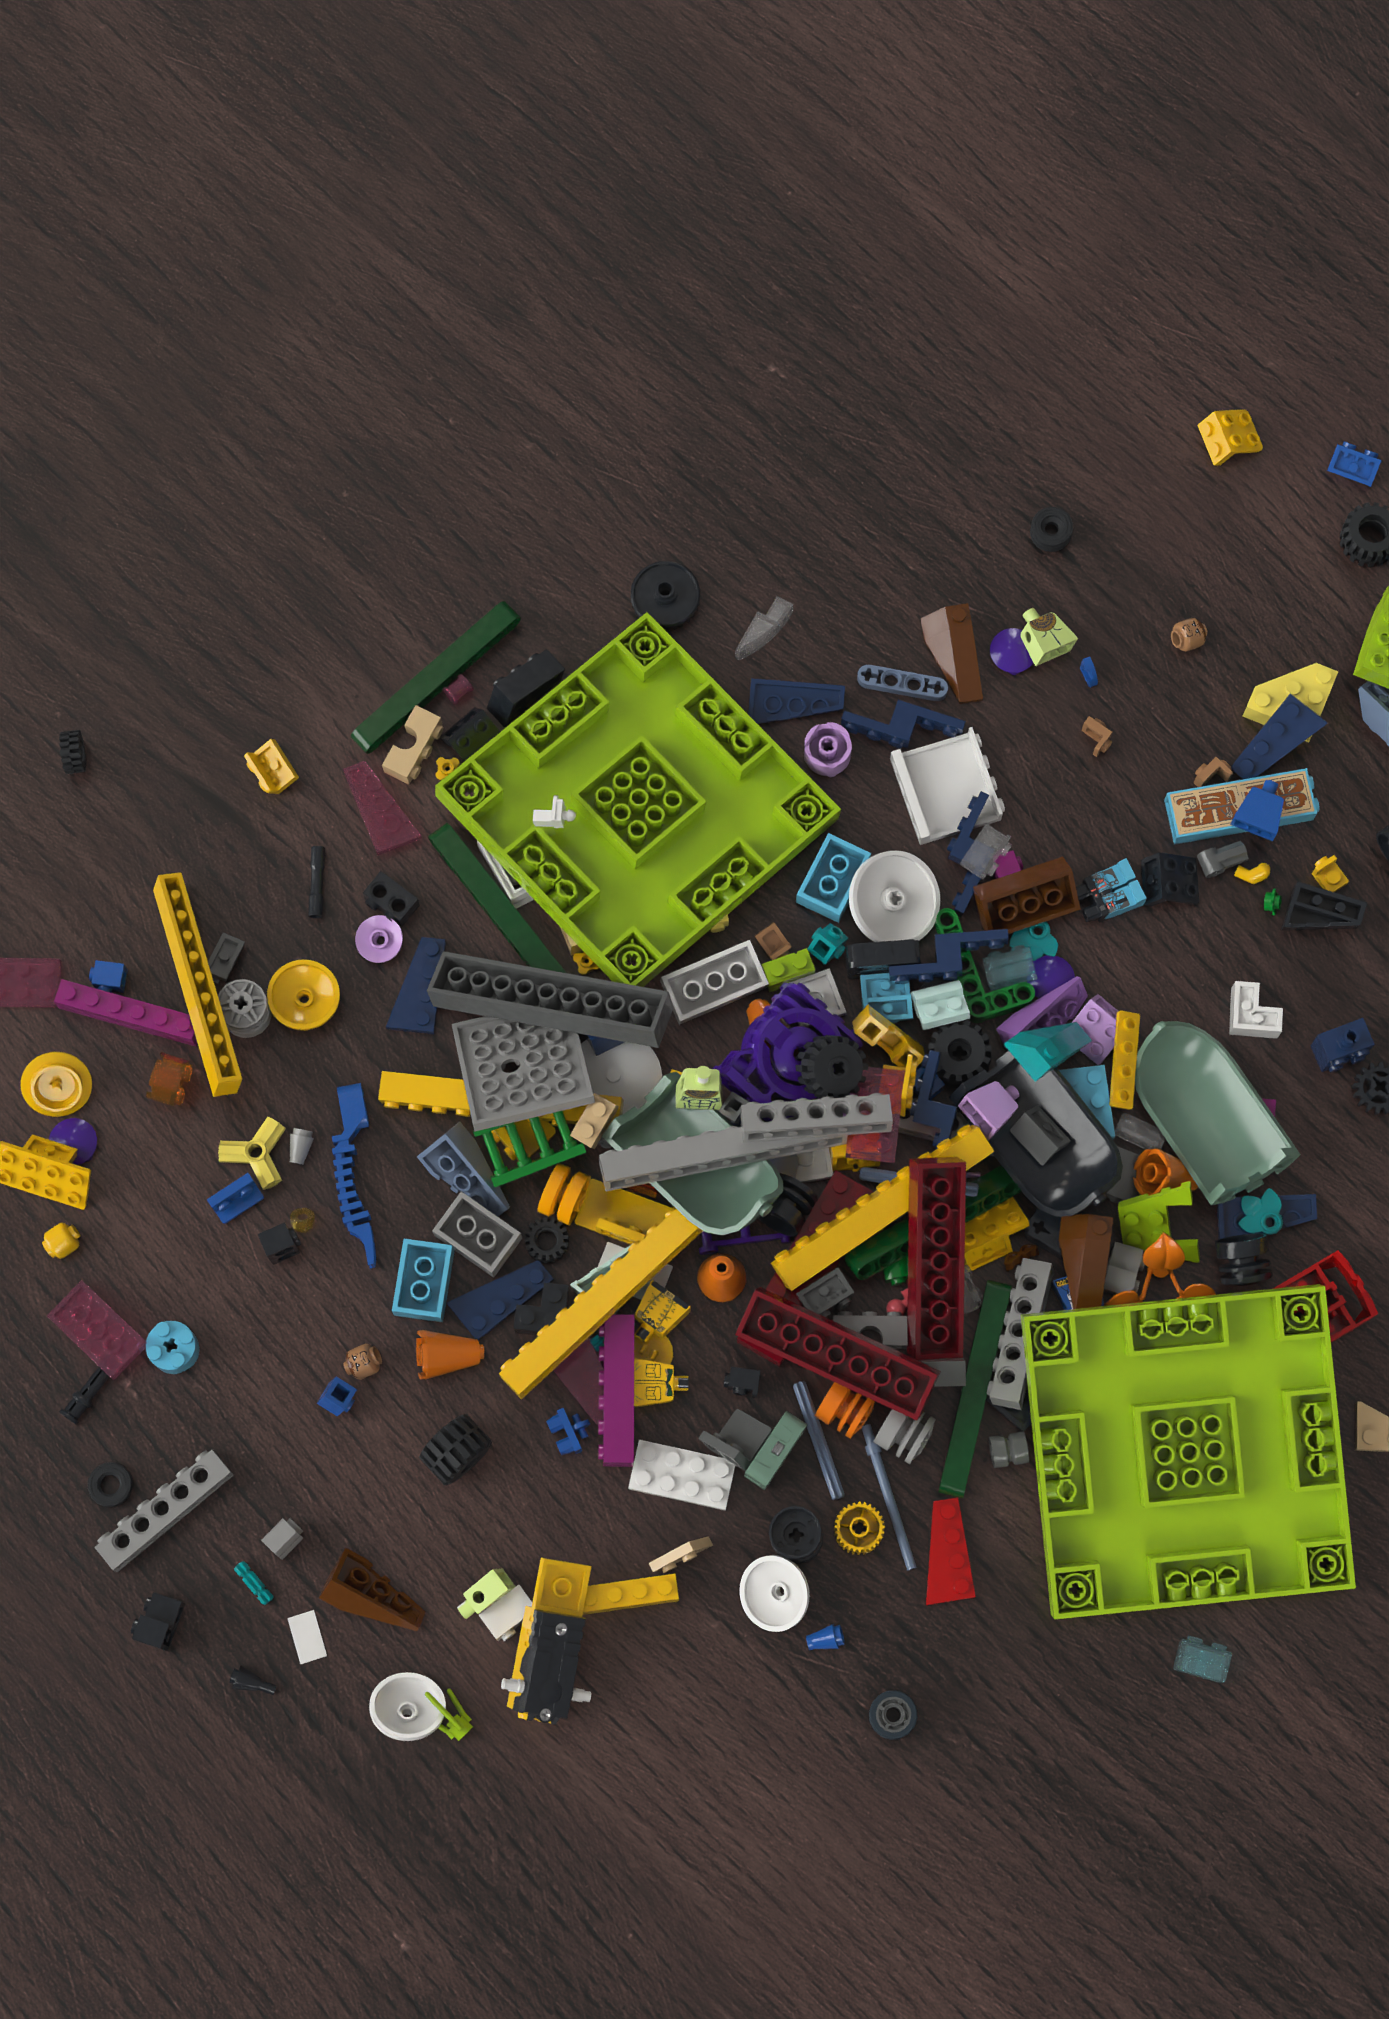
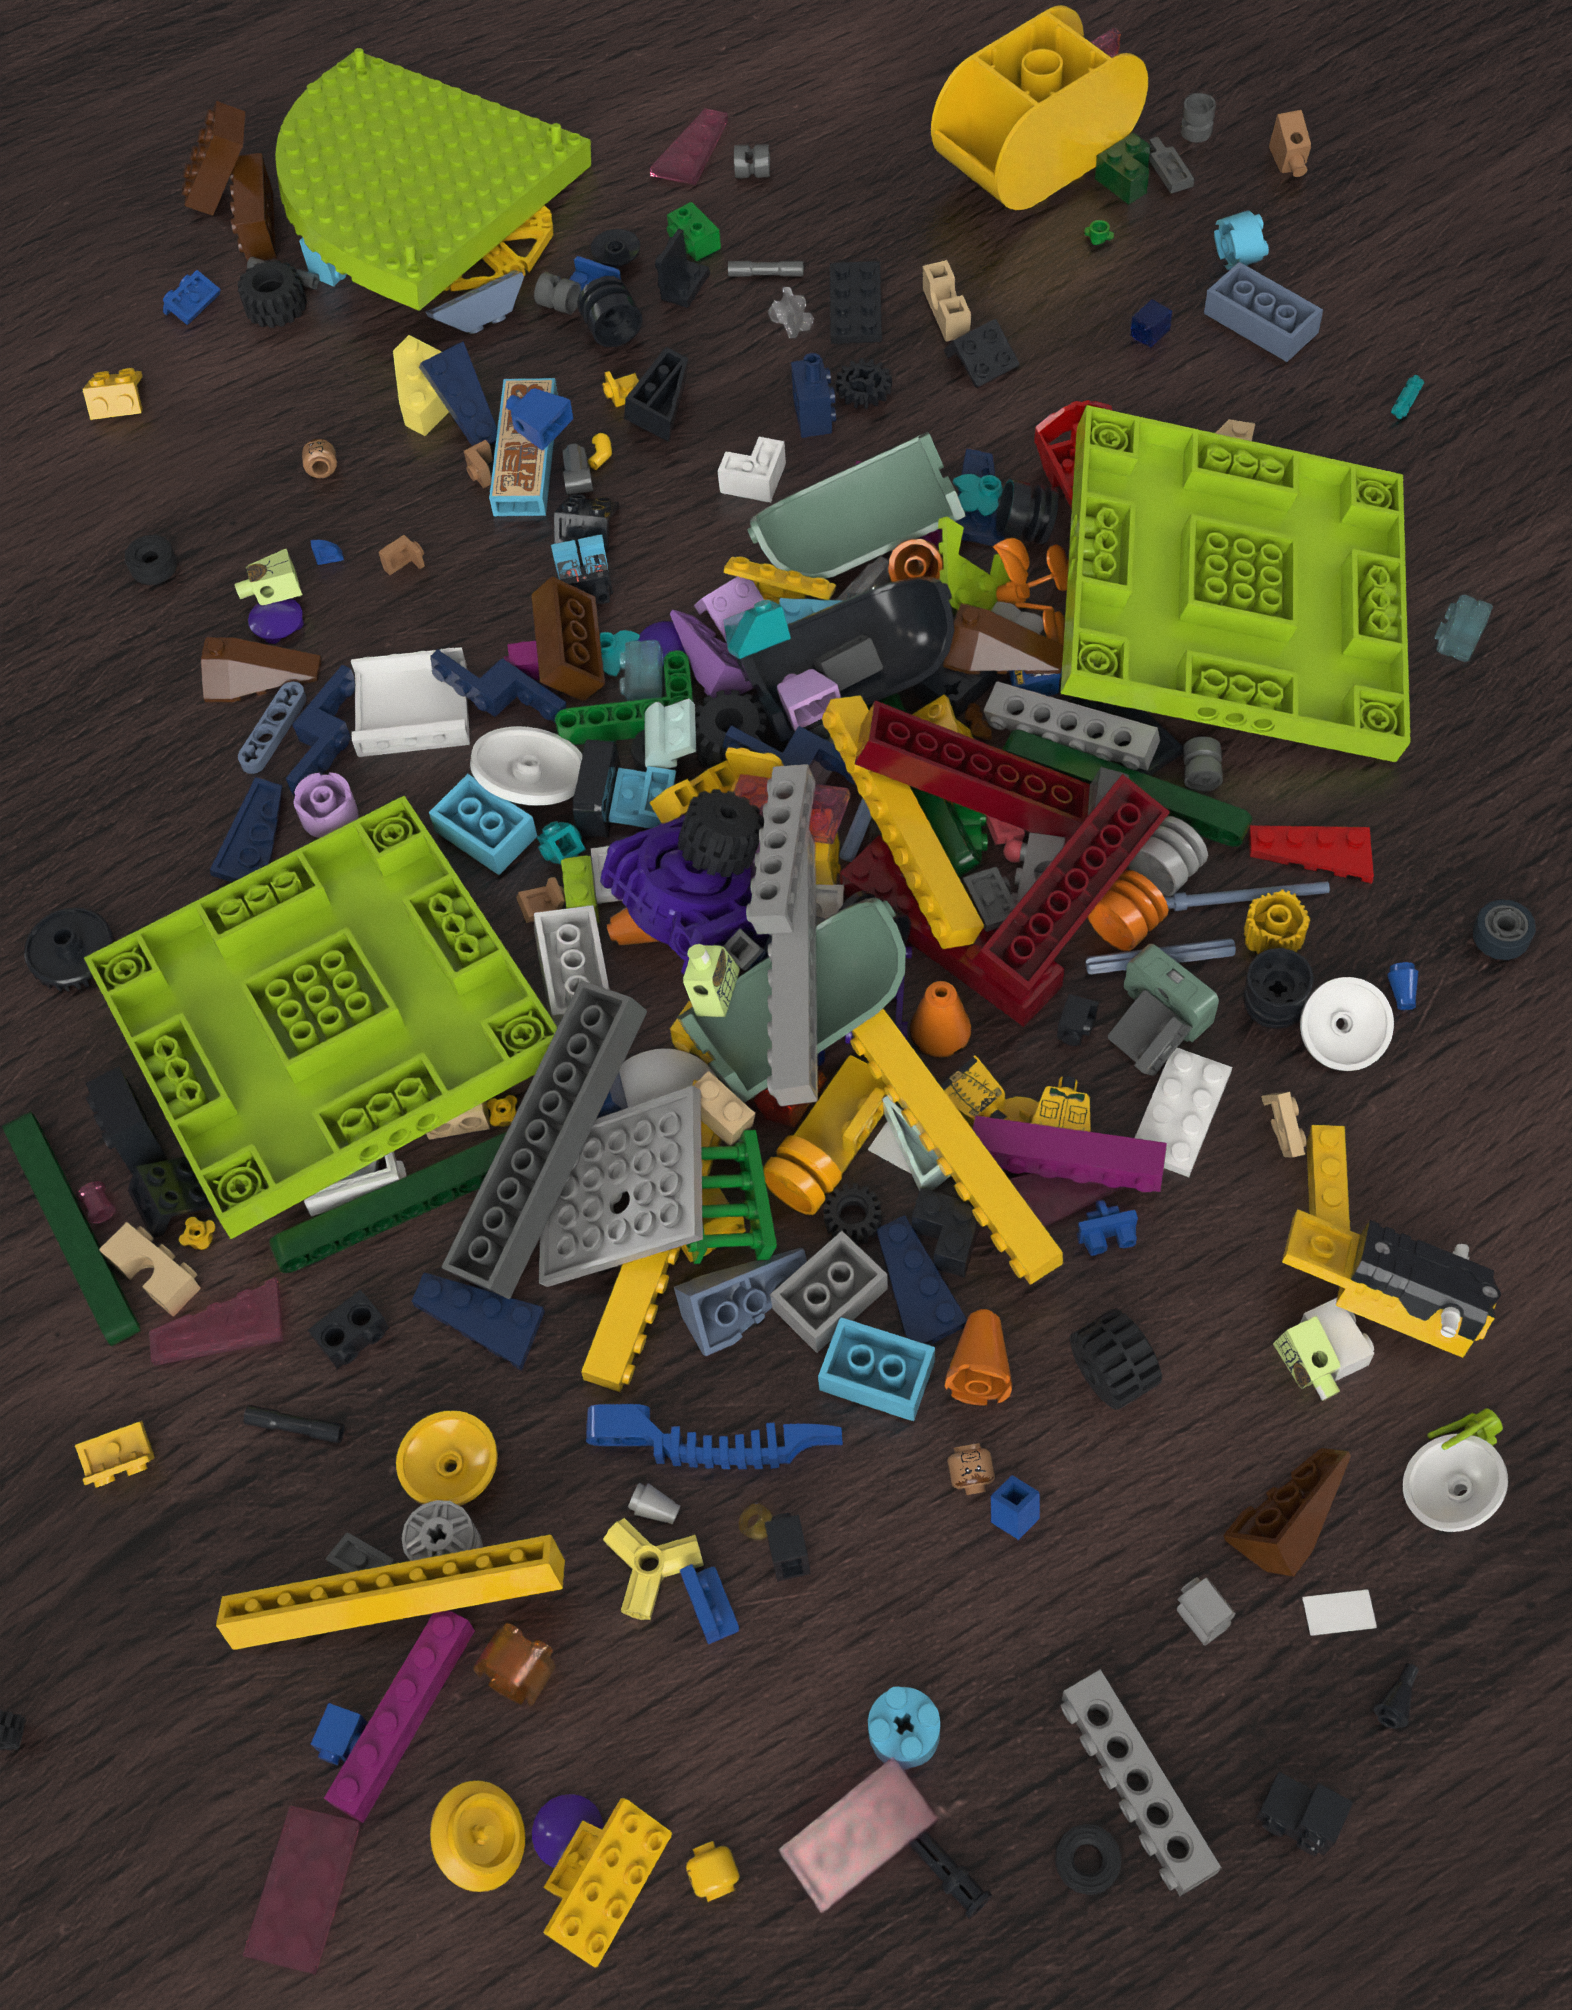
camera: 75 degrees left, 15 degrees down
(253, 1583) = (1257, 1671): teal axle -> none
(367, 938) = (394, 1337): lavender dish -> none
(554, 817) = (311, 1083): white piece -> none
(764, 628) = (150, 848): clear slope -> none
(948, 956) = (614, 717): dark blue bracket -> none
(985, 851) = (504, 660): clear bracket -> none
(1272, 901) = (637, 437): green plate -> none

